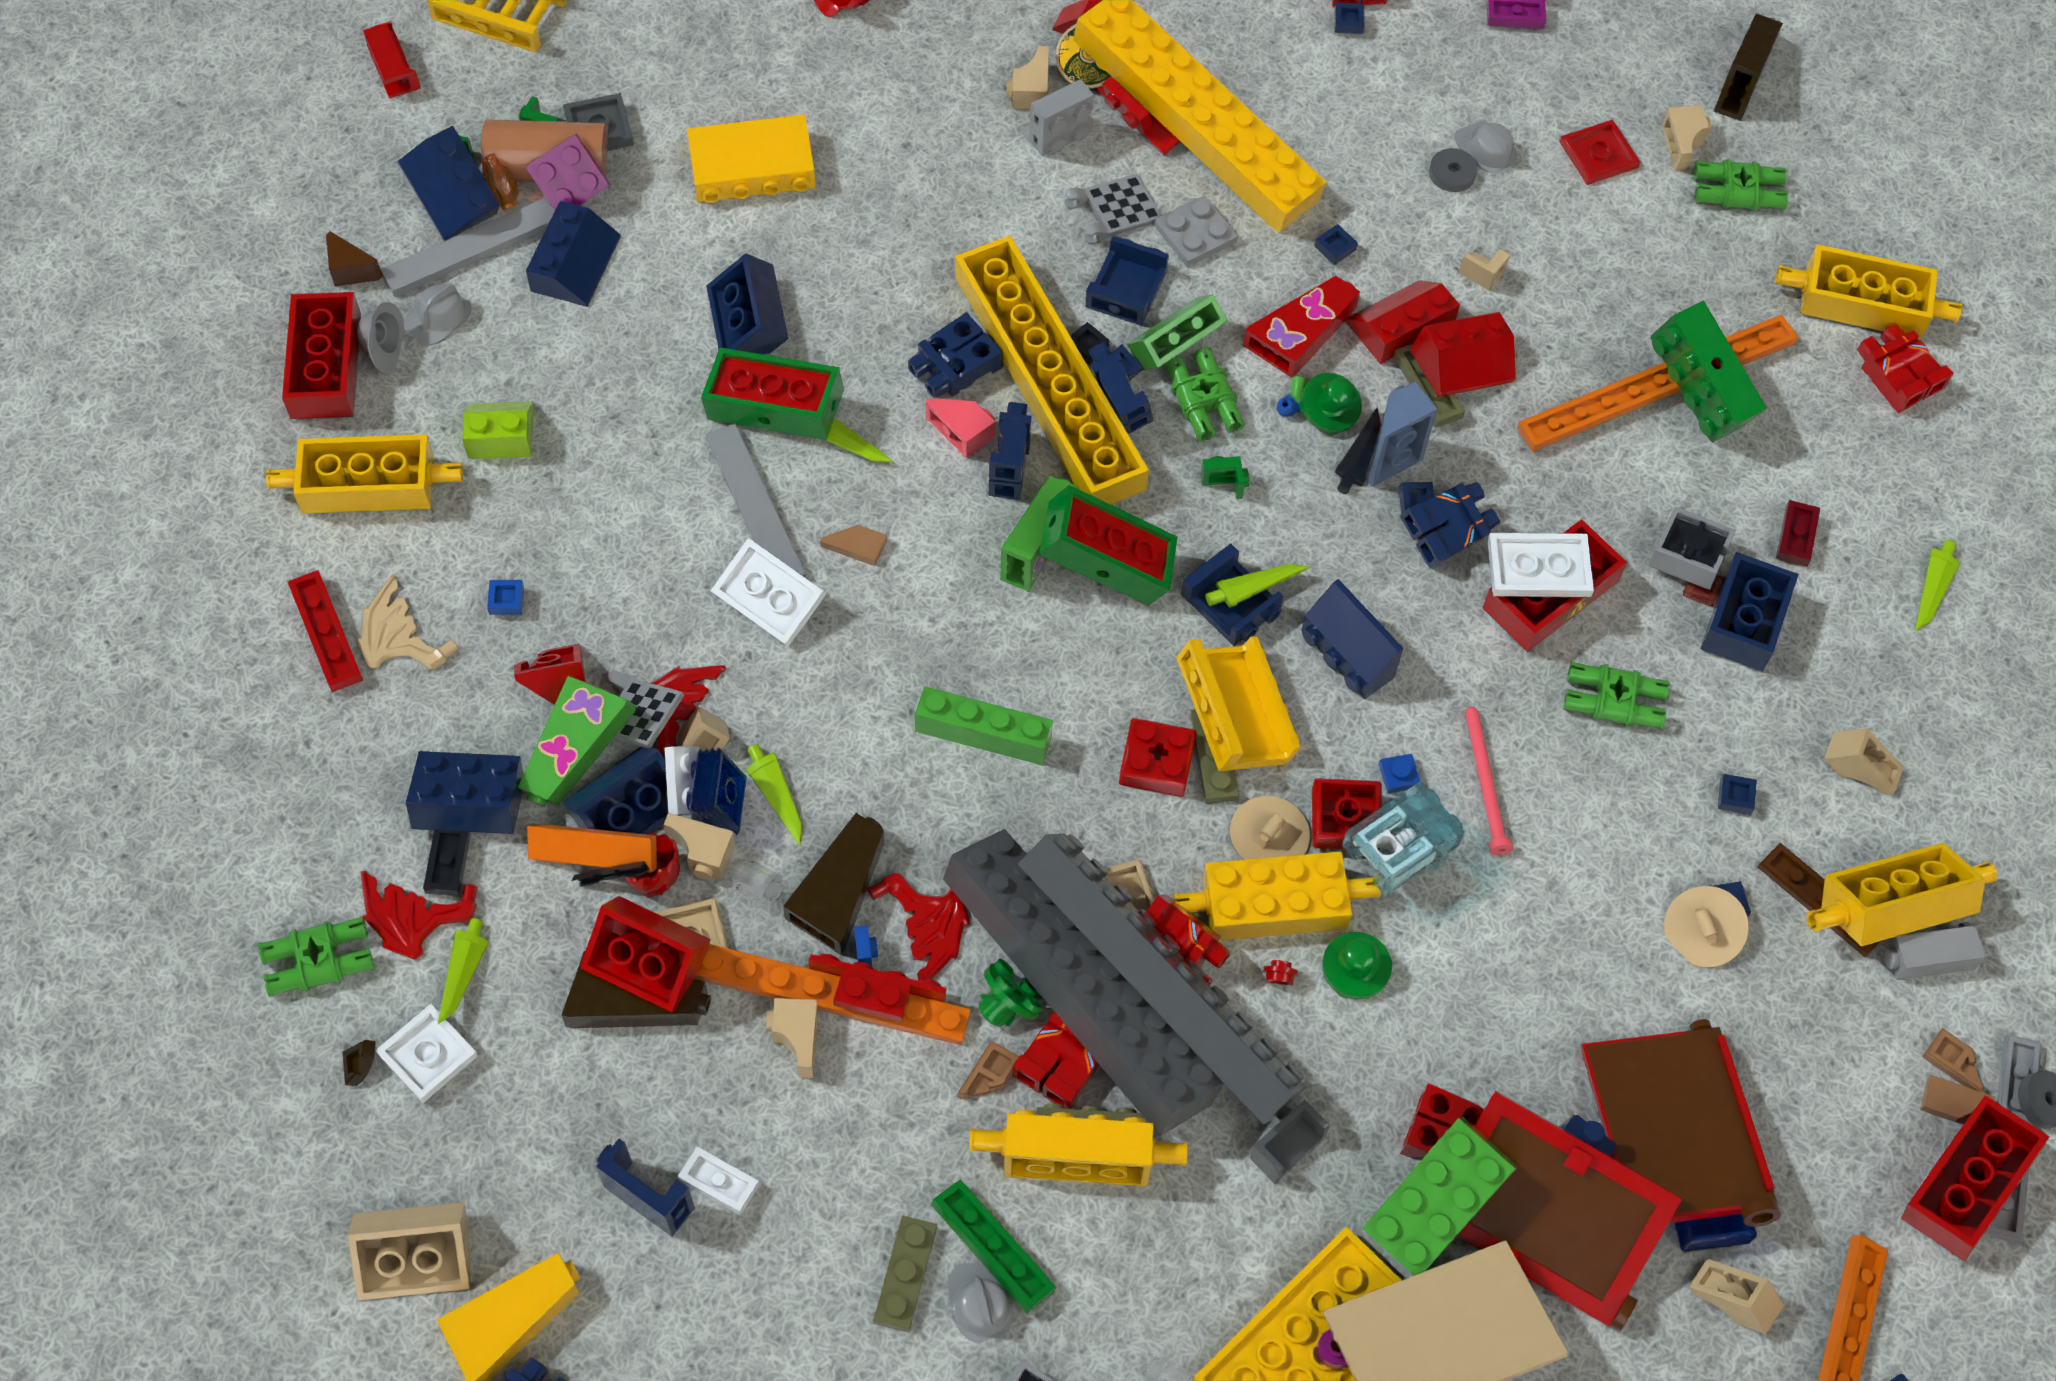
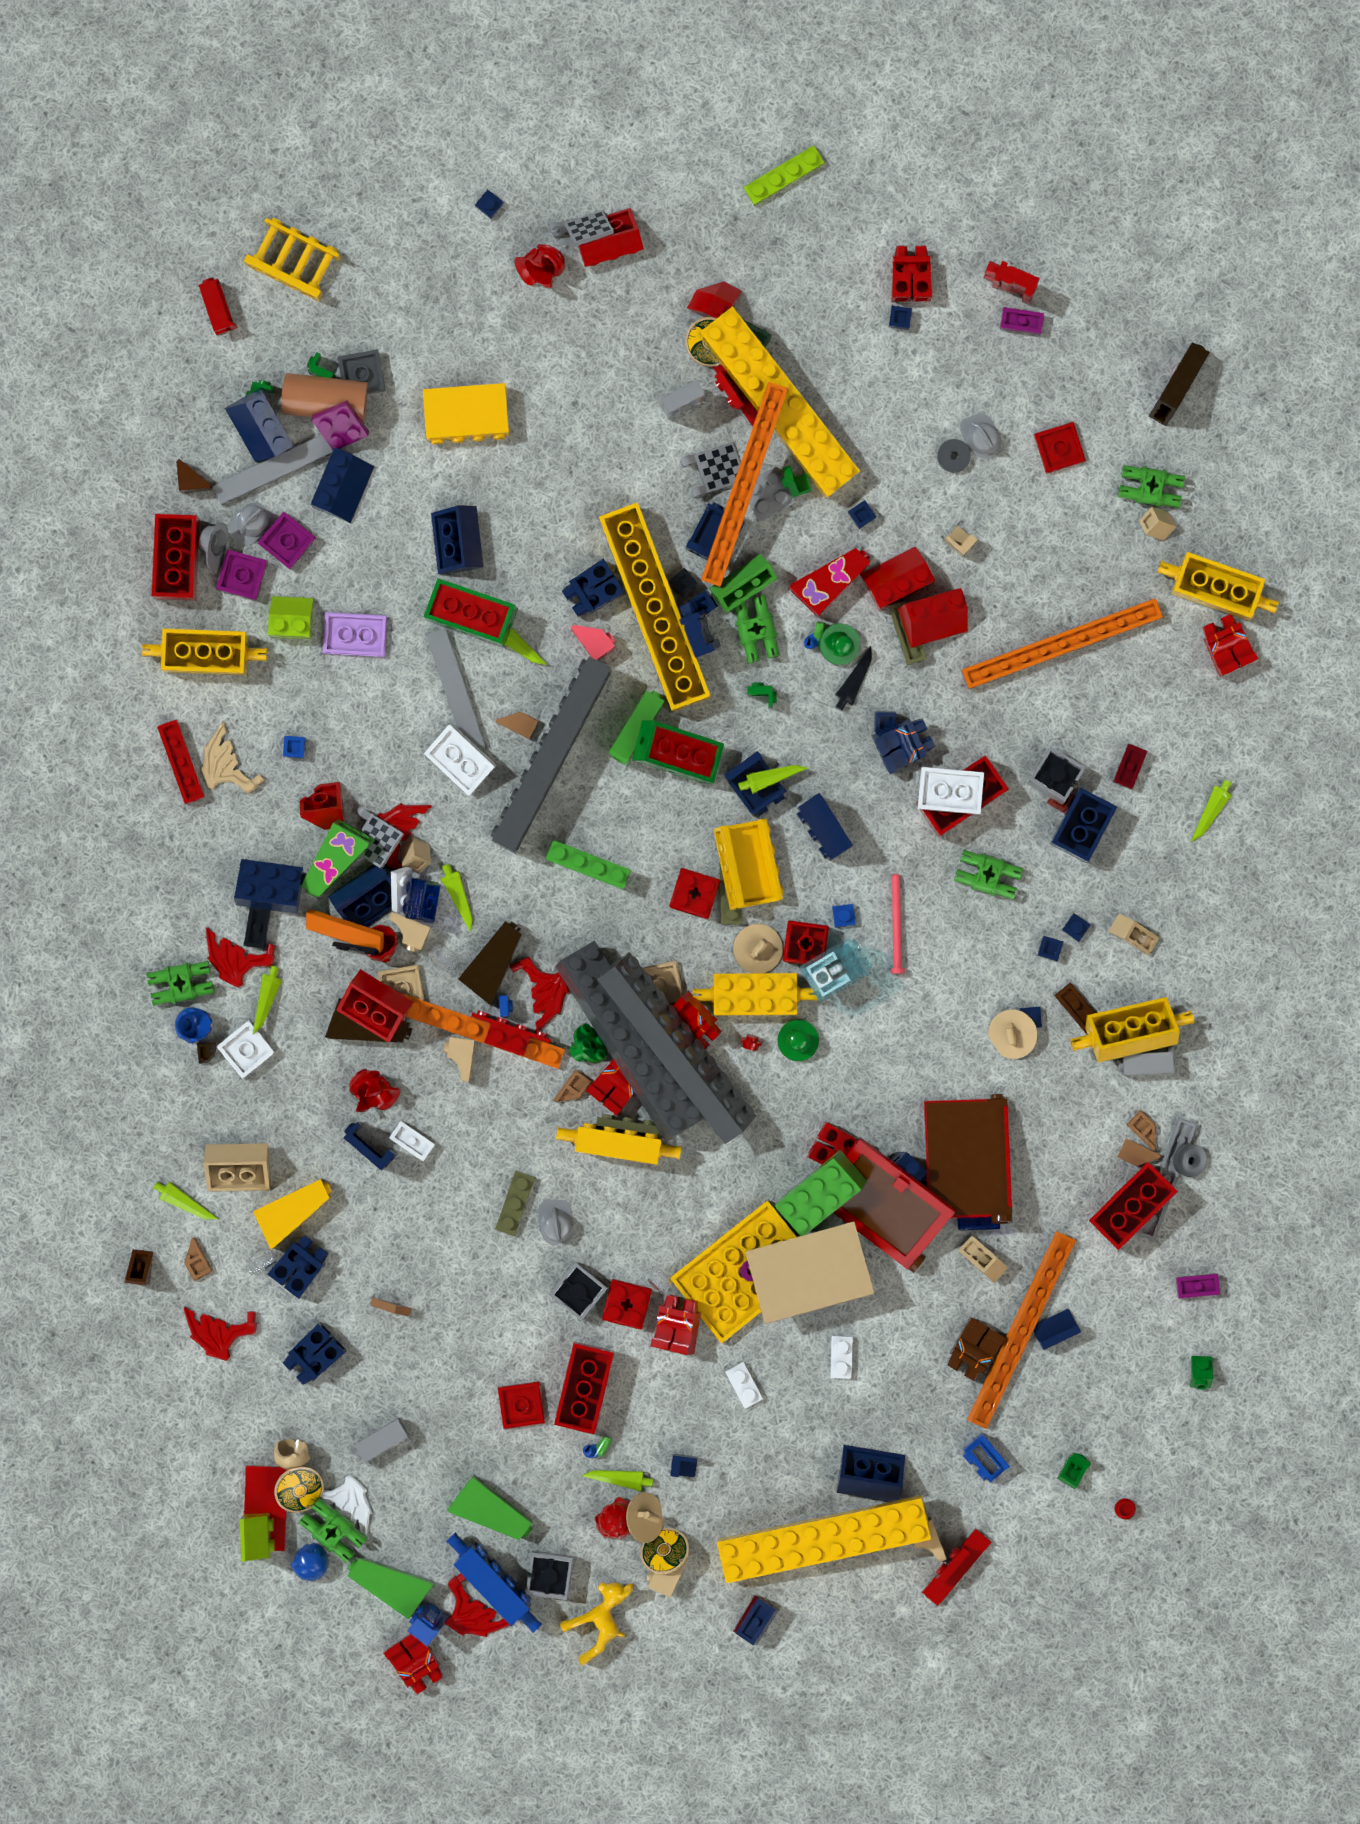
camera: 10 degrees right, 25 degrees up
(304, 1317) = (176, 1197): none -> lime bar
(334, 1015) = (193, 1024): none -> blue hair
(424, 376) = (242, 575): none -> magenta plate
(492, 329) = (286, 540): none -> magenta plate
(501, 182) = (293, 425): clear orange plant -> none
(597, 444) = (355, 634): none -> lavender tile
(648, 1098) = (372, 1090): none -> red helmet
(908, 575) = (552, 754): none -> dark grey brick
(993, 1246) = (565, 1193): green plate -> none
(1014, 440) = (625, 666): dark blue hips -> none
(1029, 81) = (666, 362): tan arch -> none
(1163, 199) = (744, 484): none -> orange plate
(1228, 208) = (796, 485): none -> green bracket
(1289, 1141) = (741, 1148): dark grey panel -> none
(1402, 432) = (877, 682): sand blue slope -> none
(1685, 129) = (1121, 437): tan arch -> none
(1707, 372) = (1089, 651): green brick -> none
(1760, 226) = (1157, 523): none -> tan panel
(1769, 763) = (1076, 927): none -> dark blue plate

